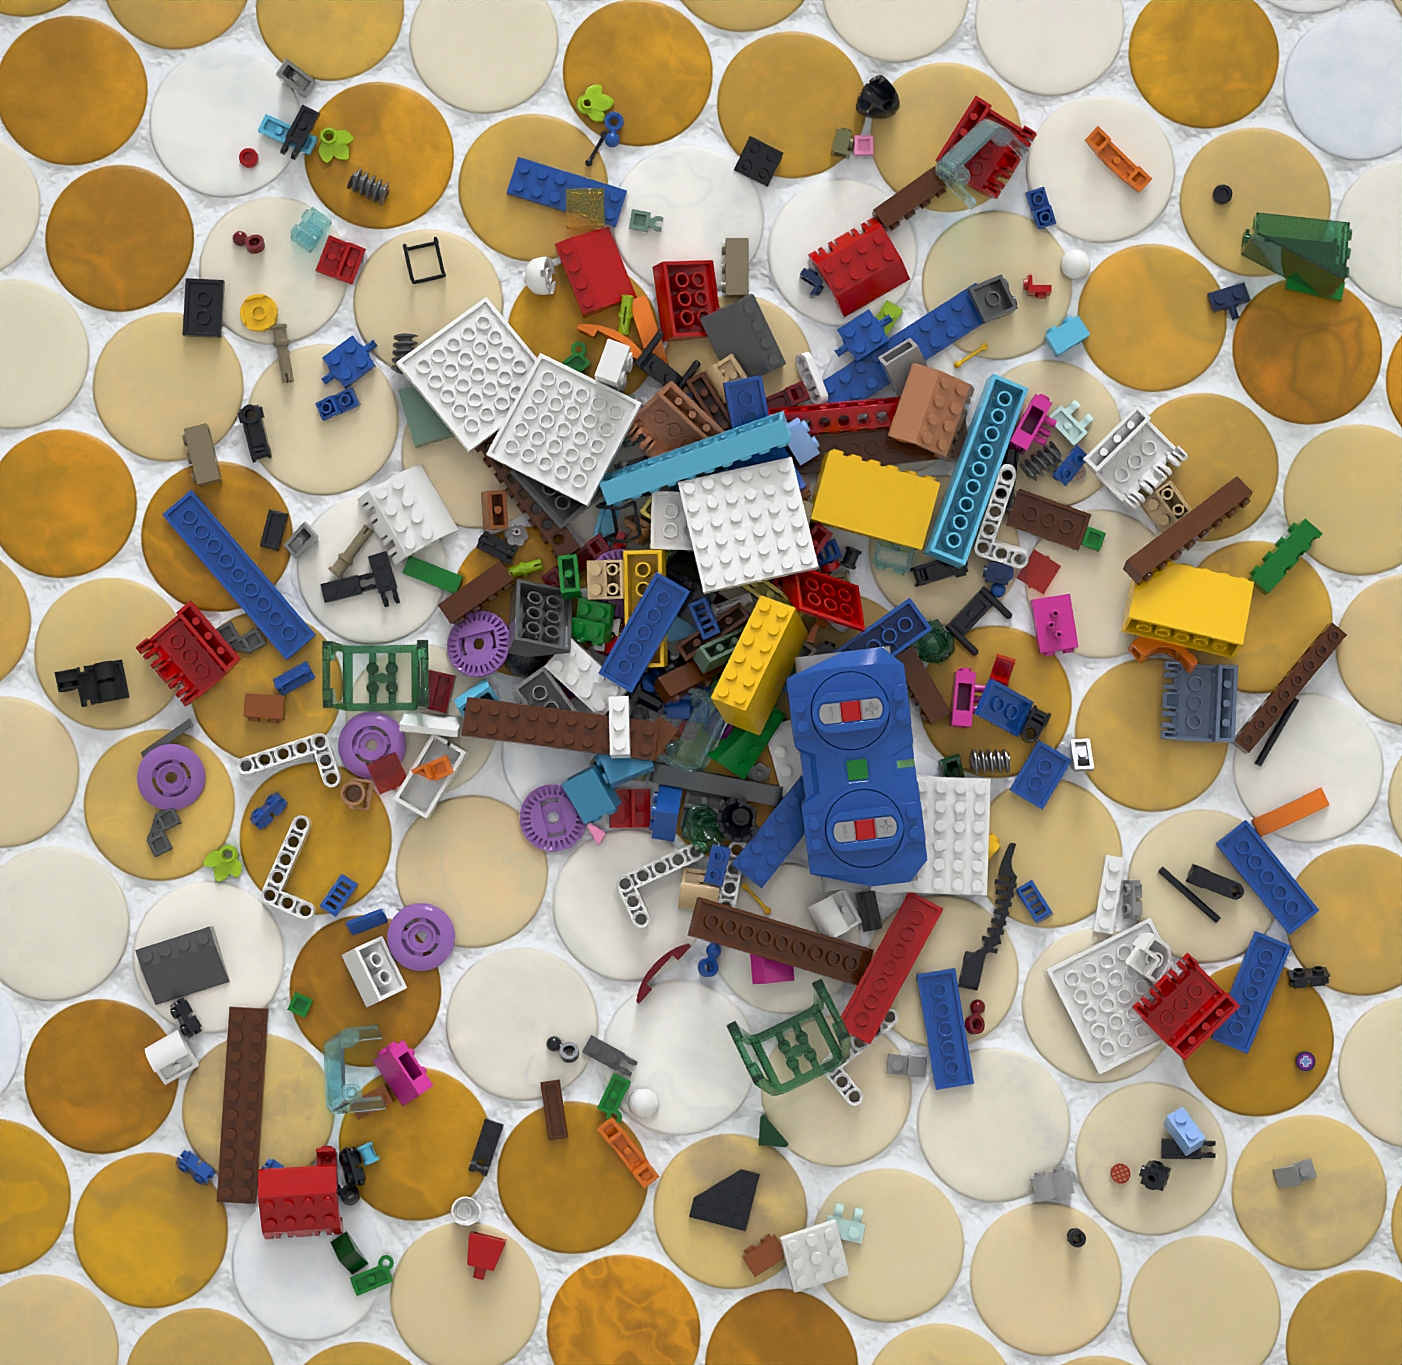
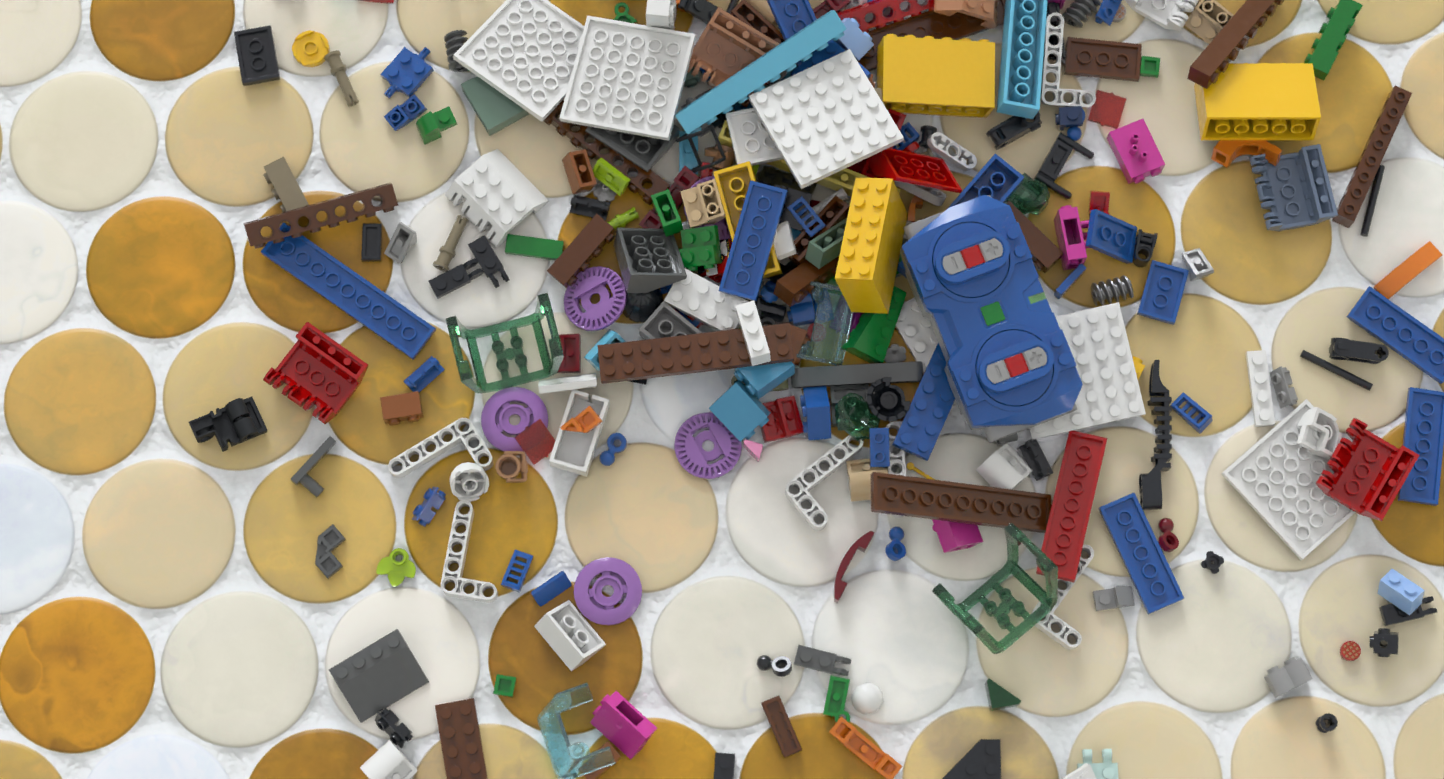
camera: 15 degrees left, 10 degrees down
(165, 760) = (311, 484): medium lavender piece -> none
(238, 486) = (387, 204): none -> reddish brown brick
(247, 643) = (370, 353): dark grey tile -> none
(255, 432) = (332, 155): black piece -> none
(311, 798) = (468, 481): none -> white cylinder
(364, 425) = (433, 123): none -> green brick
(453, 805) = (607, 457): none -> blue plate
(523, 524) = (610, 176): none -> lime plate
(676, 636) = (784, 241): none -> white tile
(876, 593) = (942, 139): none -> white beam
(893, 557) = (967, 126): clear light blue window -> none
(950, 741) = (1069, 281): none -> blue tile
(952, 766) = (1076, 301): dark green slope -> none
(1012, 1059) = (1218, 560): none -> black plate

